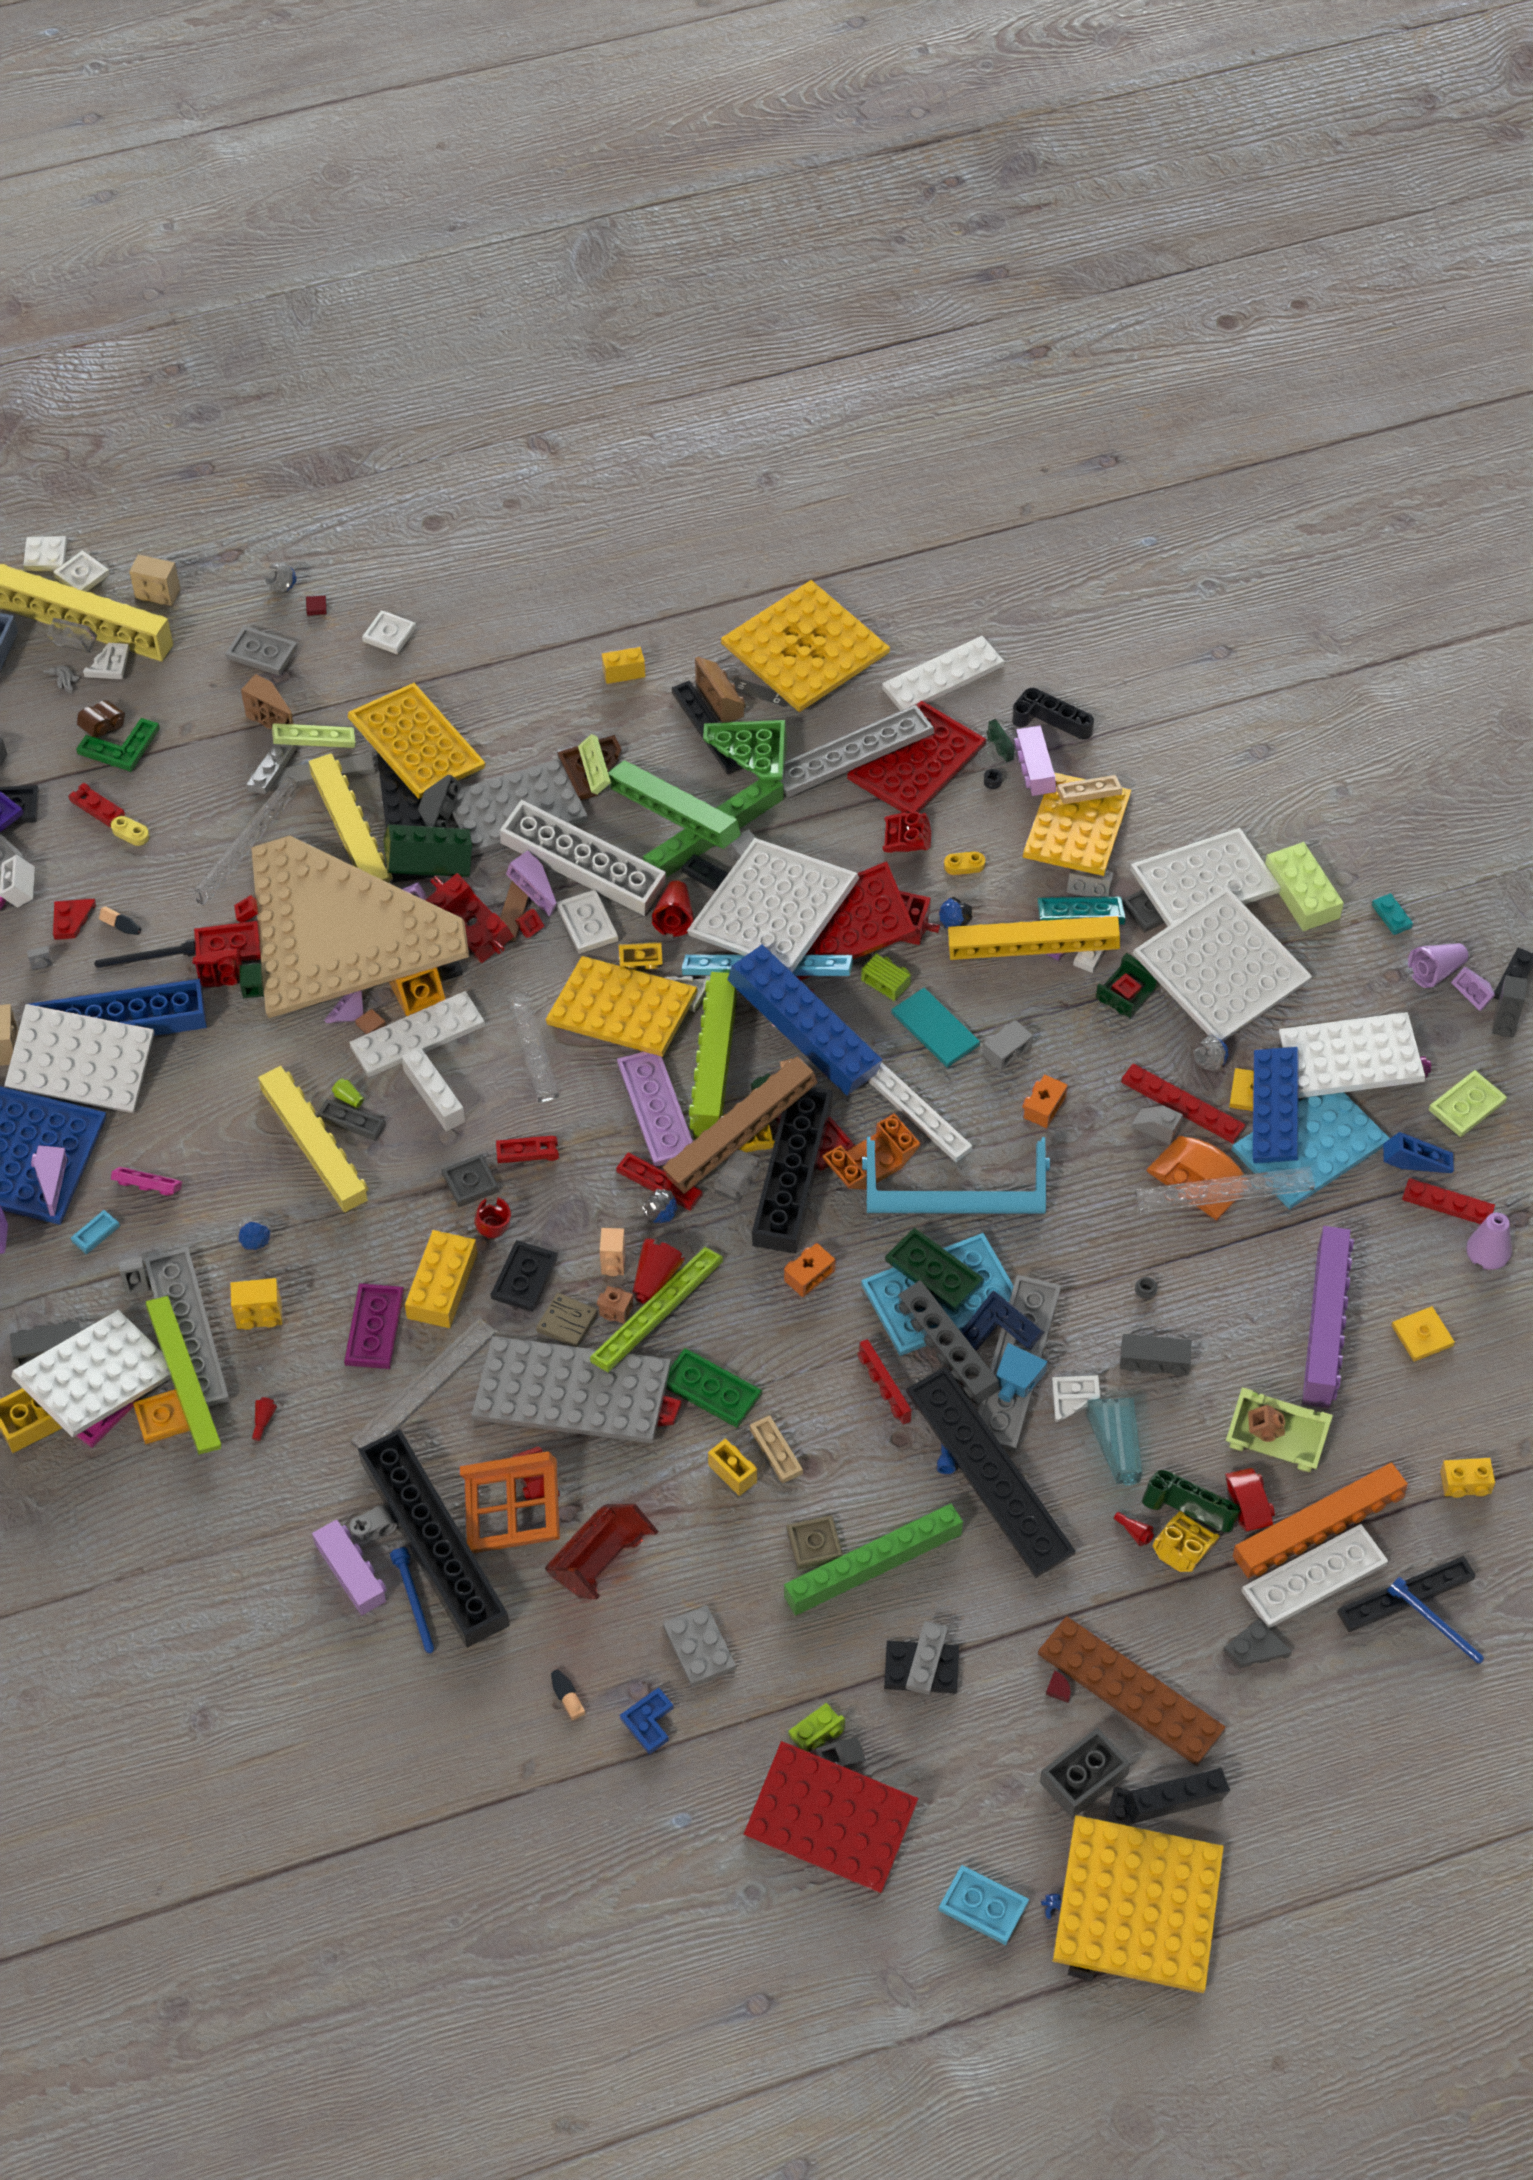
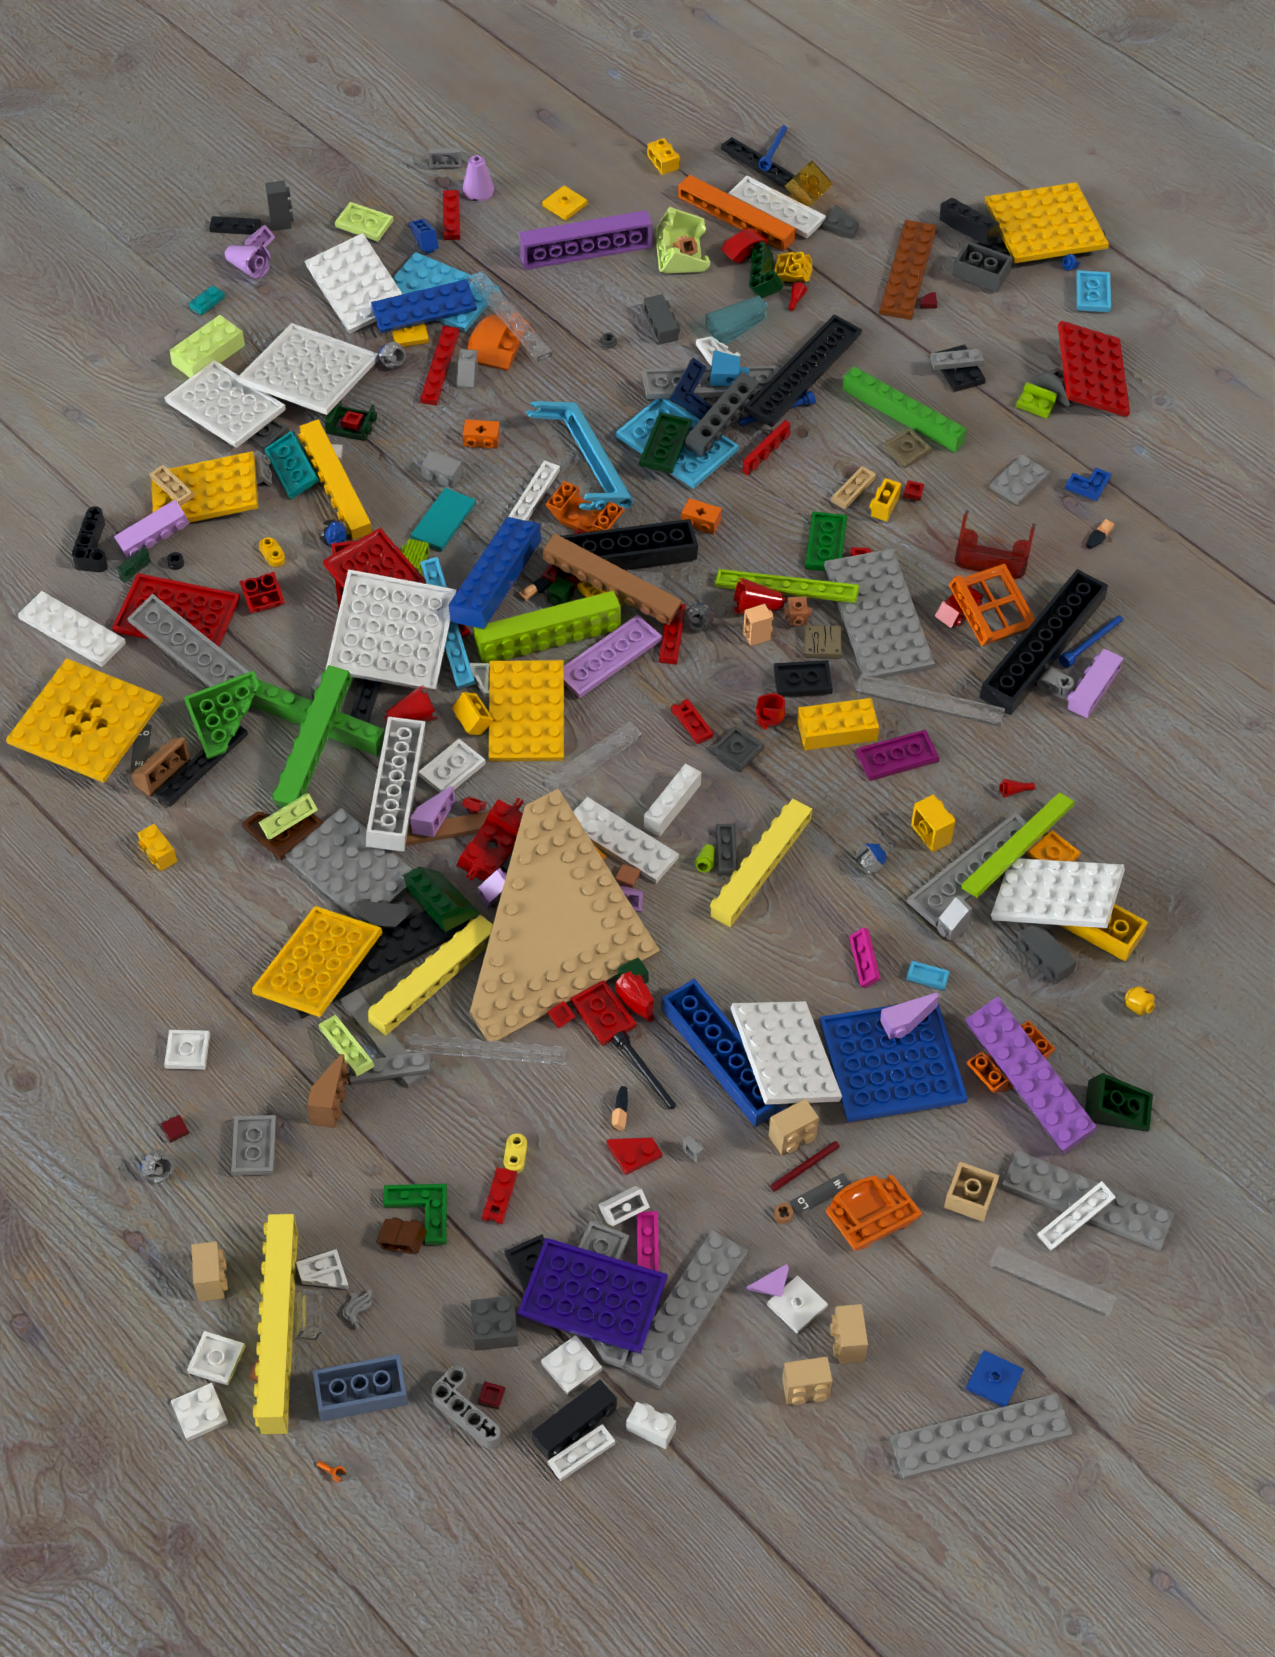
camera: 115 degrees left, 0 degrees up
(738, 1512) = (913, 490): none -> red plate
(1329, 1619) = (809, 184): none -> clear yellow brick

